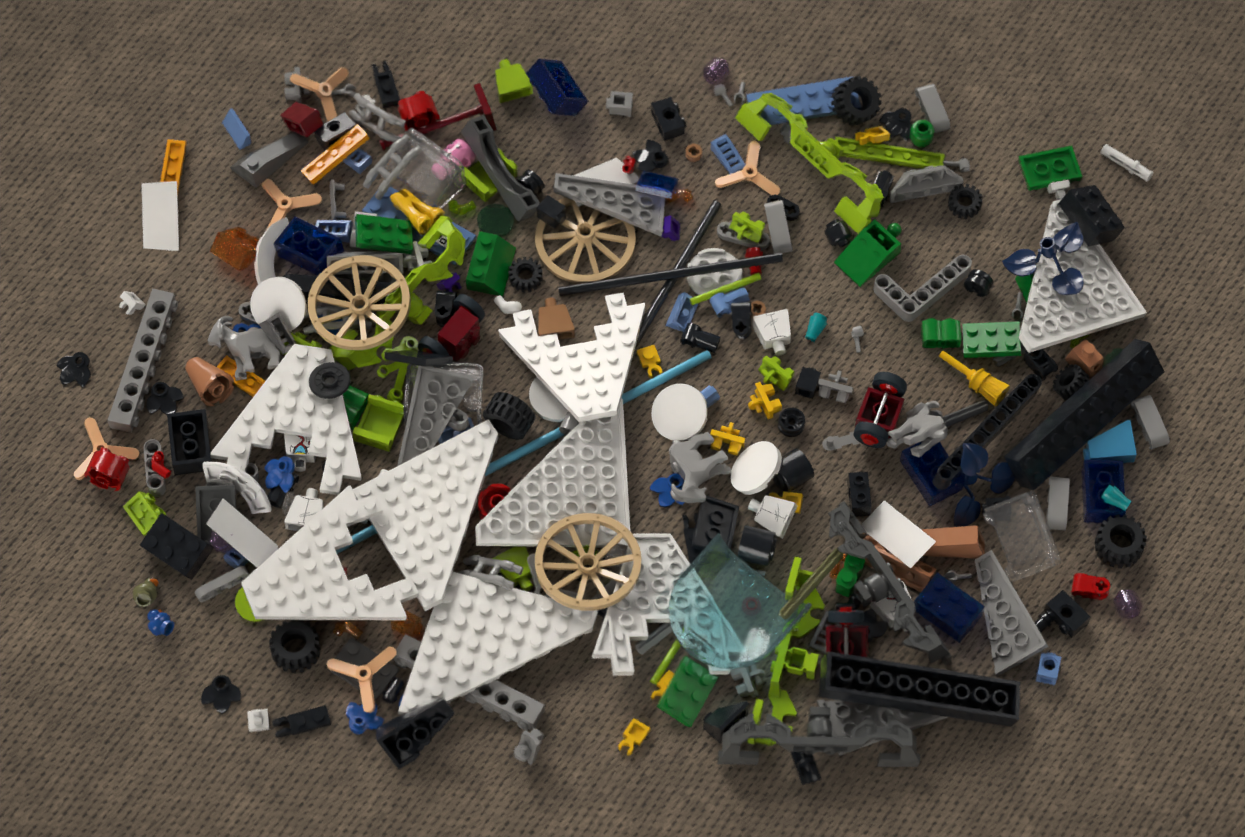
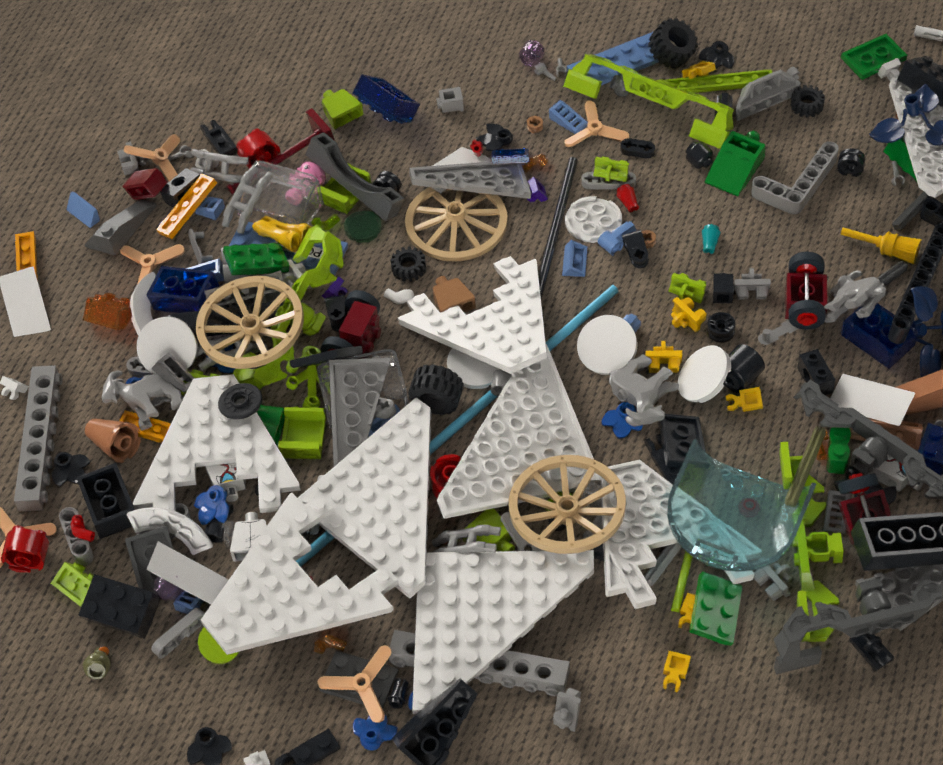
camera: 10 degrees left, 10 degrees down
(160, 623) = (121, 691): blue animal -> none
(295, 660) = (280, 689): black tyre -> none
(409, 629) = (399, 622): clear orange brick -> none
(490, 264) = (370, 263): green slope -> none
(551, 212) = (416, 202): black brick -> none
(649, 358) = (556, 307): yellow plate -> none
(668, 109) = (500, 101): black brick -> none
(670, 274) = (550, 228): black piece -> none
(695, 336) = (595, 276): black piece -> none
(724, 718) = (768, 625): black slope -> none
(726, 288) = (610, 227): lime bar -> none
(757, 545) = (734, 446): black piece -> none
(773, 330) = (670, 251): white torso -> none
(773, 513) = (738, 413): white torso -> none
(778, 227) = (640, 163): light grey beam -> none
(856, 333) = (751, 235): light grey hand -> none
(922, 133) = (744, 56): green head -> none
(932, 107) = (745, 35): light grey beam -> none
(941, 333) = (833, 214): green brick -> none
(991, 339) = (884, 207): green plate -> none

